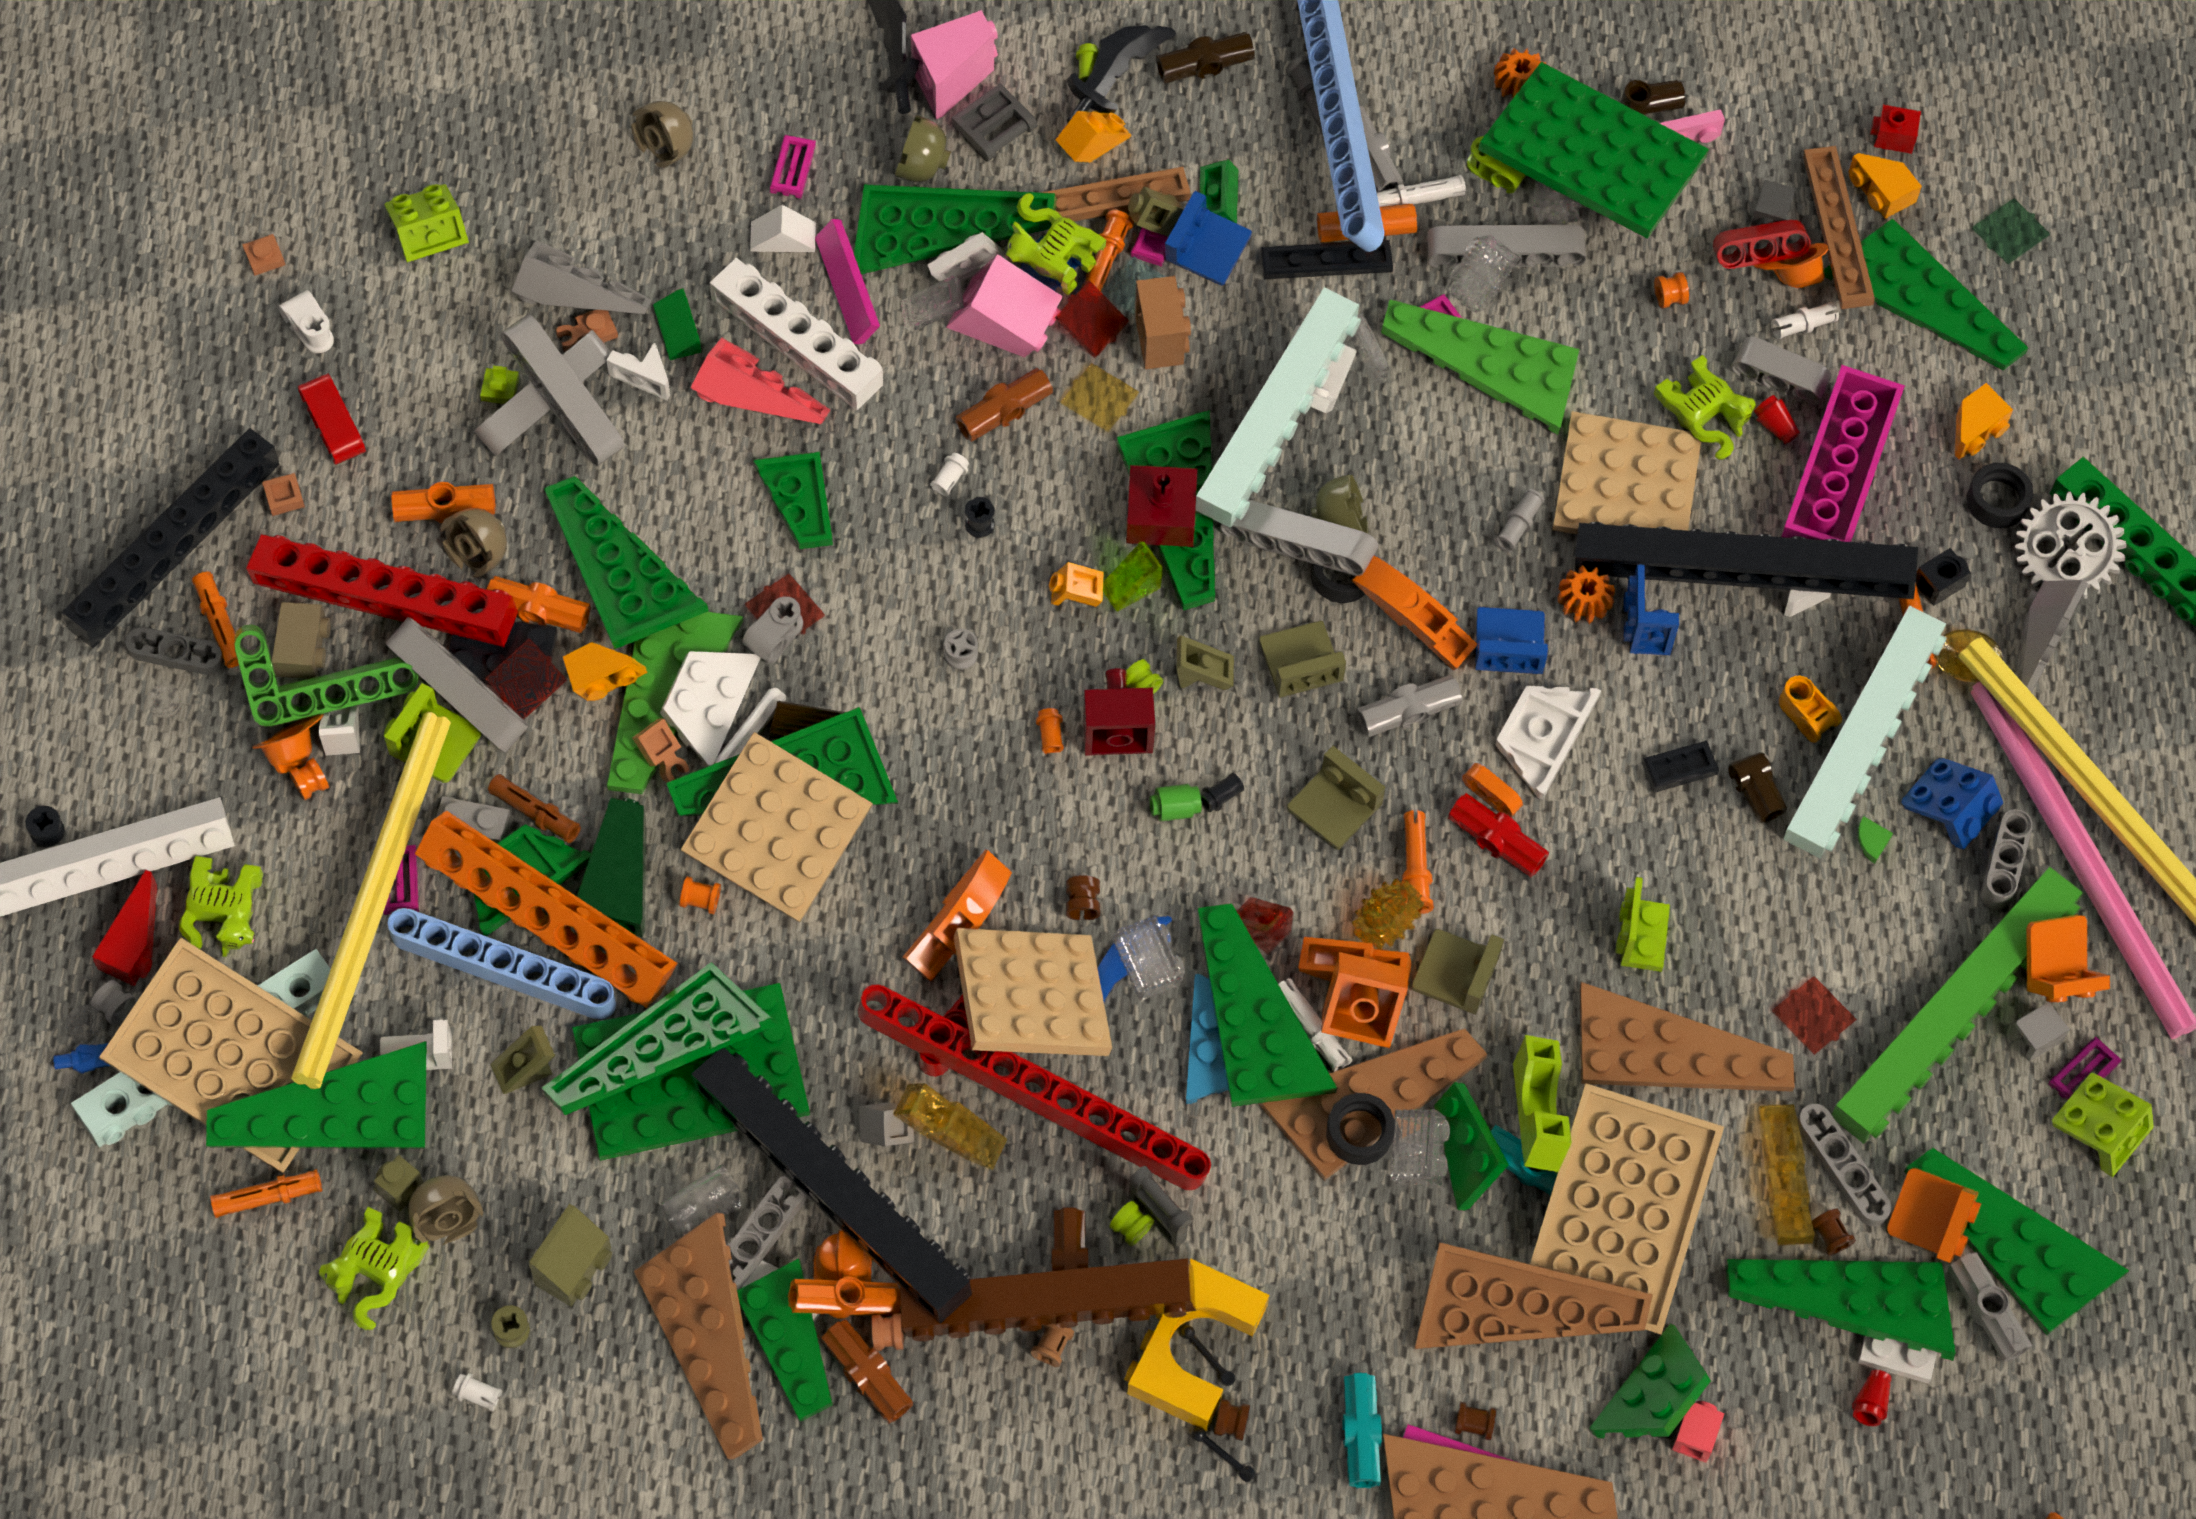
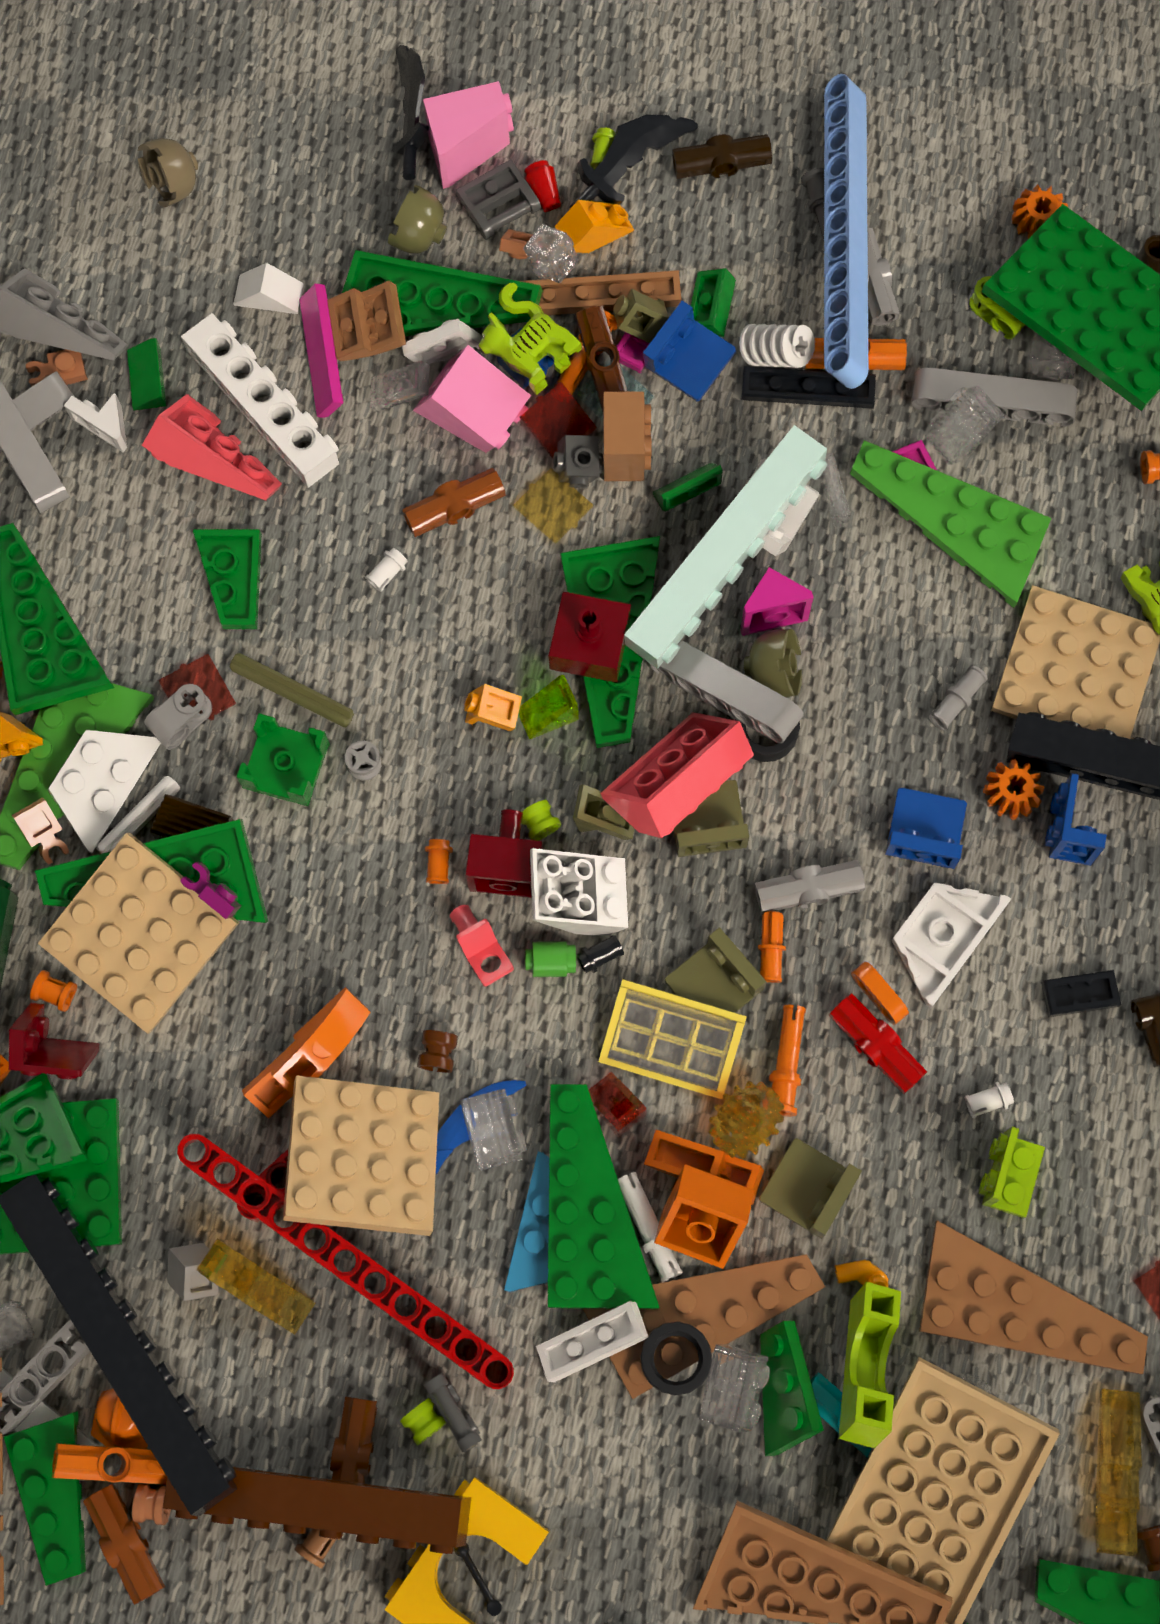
camera: 15 degrees right, 10 degrees up
(701, 951) = (35, 1054): none -> dark red bracket
(787, 188) = (292, 247): dark pink tile -> none
(853, 779) = (217, 897): none -> magenta plate
(877, 595) = (292, 690): none -> olive axle
(884, 660) = (284, 761): none -> green panel
(889, 248) = (366, 322): none -> medium nougat slope
(979, 507) = (403, 611): black bush -> none
(1023, 161) = (513, 243): none -> nougat plate
(1036, 101) = (543, 183): none -> red cone
(1058, 164) = (551, 253): none -> clear brick
(1104, 798) = (478, 943): none -> coral bracket
(1118, 235) = (597, 337): none -> reddish brown piece
(1118, 350) = (578, 460): none -> dark grey brick
(1196, 733) = (579, 892): none -> white slope
(1228, 363) = (688, 486): none -> green slope
(1269, 617) = (679, 773): none -> coral slope
(1278, 1127) = (592, 1341): none -> white plate
(1291, 222) = (777, 345): none -> white piece
(1304, 857) = (672, 1039): none -> clear piece
(1334, 453) = (776, 604): none -> dark pink slope
(1383, 762) = (771, 946): none -> orange axle
(1416, 610) = (832, 787): orange slope -> none
(1423, 192) = (916, 328): white pin -> none
(1513, 1037) = (862, 1271): none -> light orange arm
(1611, 870) = (989, 1099): none -> white pin

